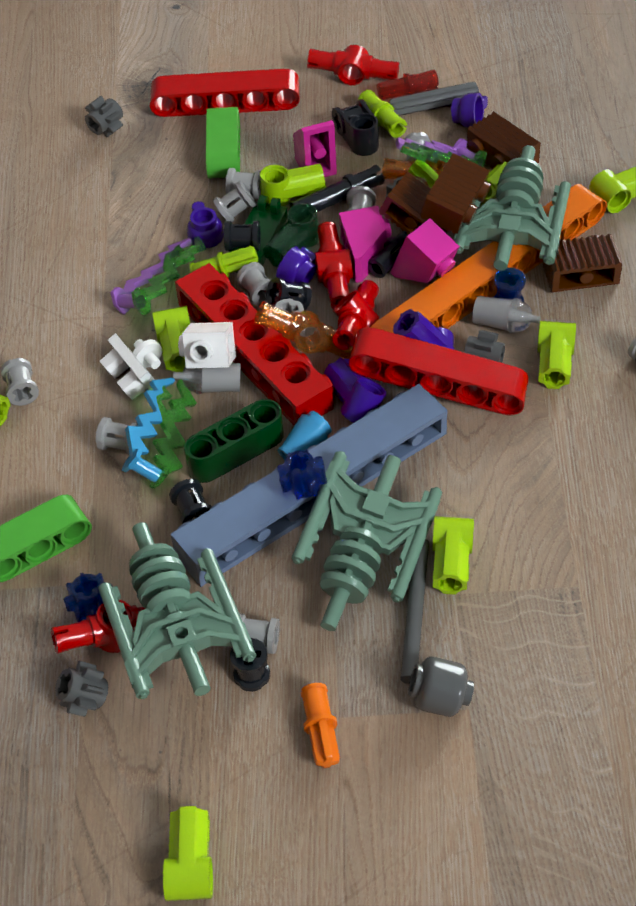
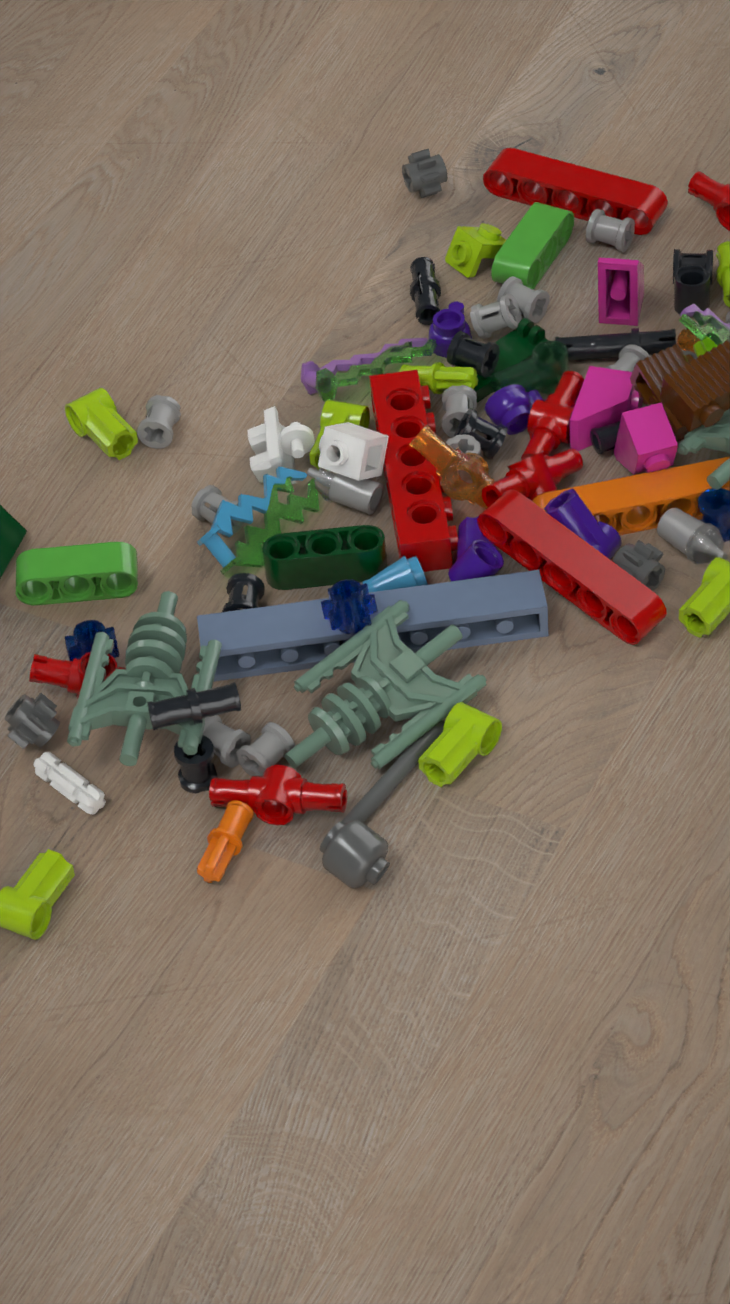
camera: 30 degrees right, 5 degrees down
(147, 731) = (69, 783): none -> white axle
(172, 211) = (425, 289): none -> black pin
(178, 158) = (472, 245): none -> lime bracket
(236, 617) = (194, 706): none -> black pin
(271, 112) = (610, 230): none -> light grey bush
(291, 183) = (564, 316): lime piece -> none
(300, 627) = (265, 750): none -> light grey bush
(338, 661) = (279, 794): none -> red pin

